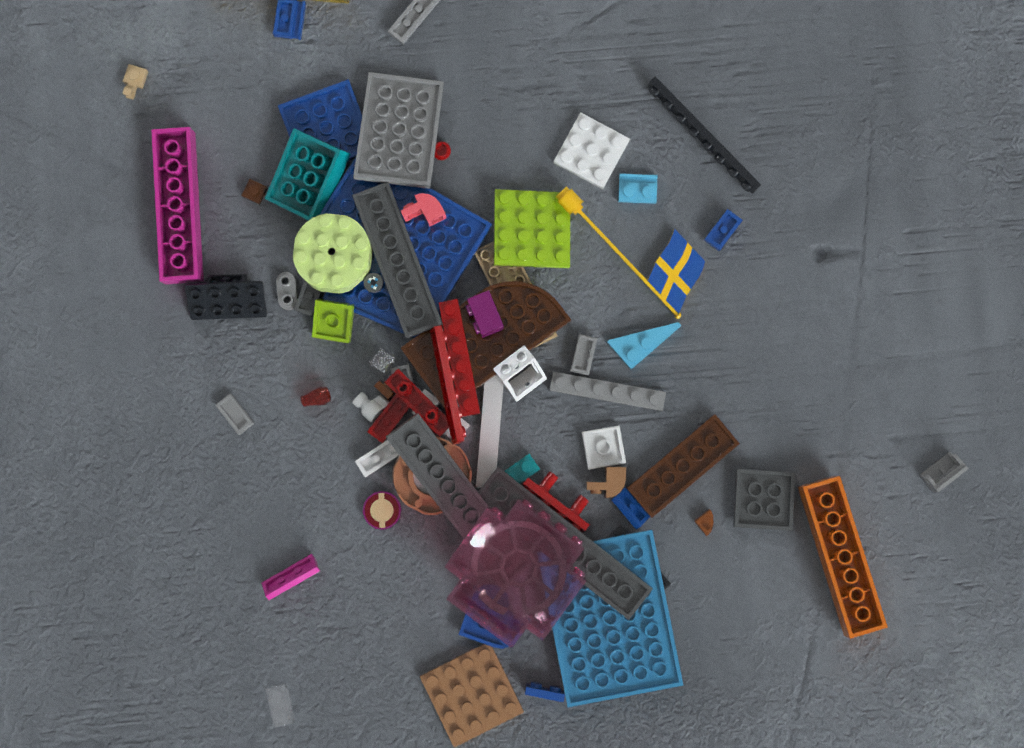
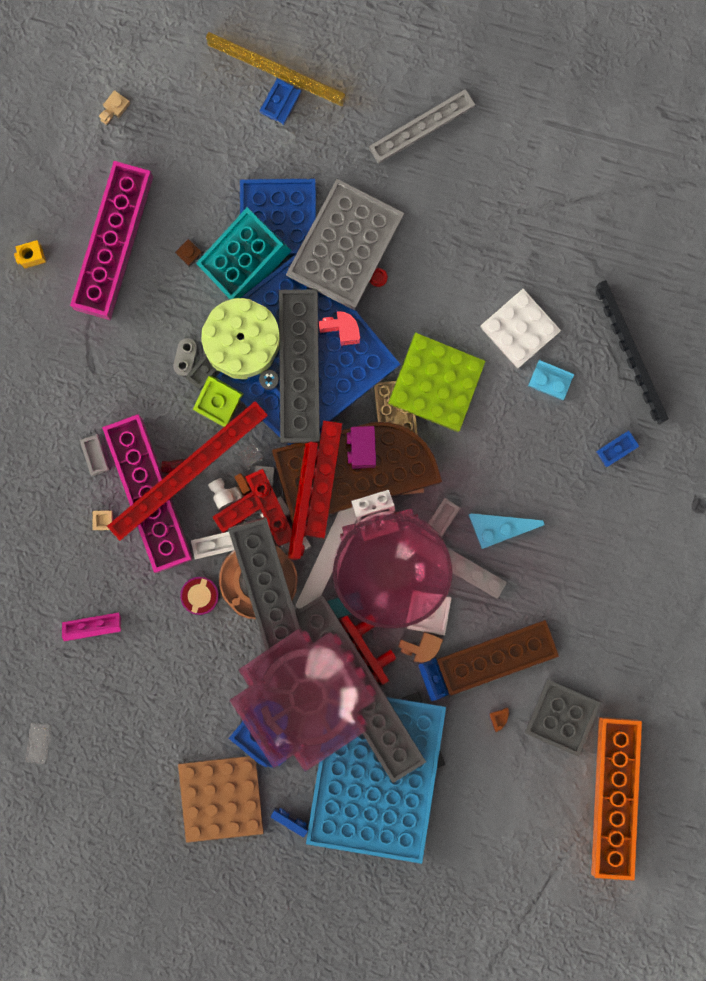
camera: 20 degrees right, 0 degrees up
(113, 247) = (37, 258): none -> yellow brick
(226, 298) = (126, 343): black bracket -> none
(264, 472) = (102, 519): none -> tan plate
(297, 432) = (138, 474): none -> dark pink brick
(327, 397) = (187, 471): none -> red plate
(555, 418) = (392, 569): none -> clear pink windscreen
(674, 269) = (553, 472): flag -> none

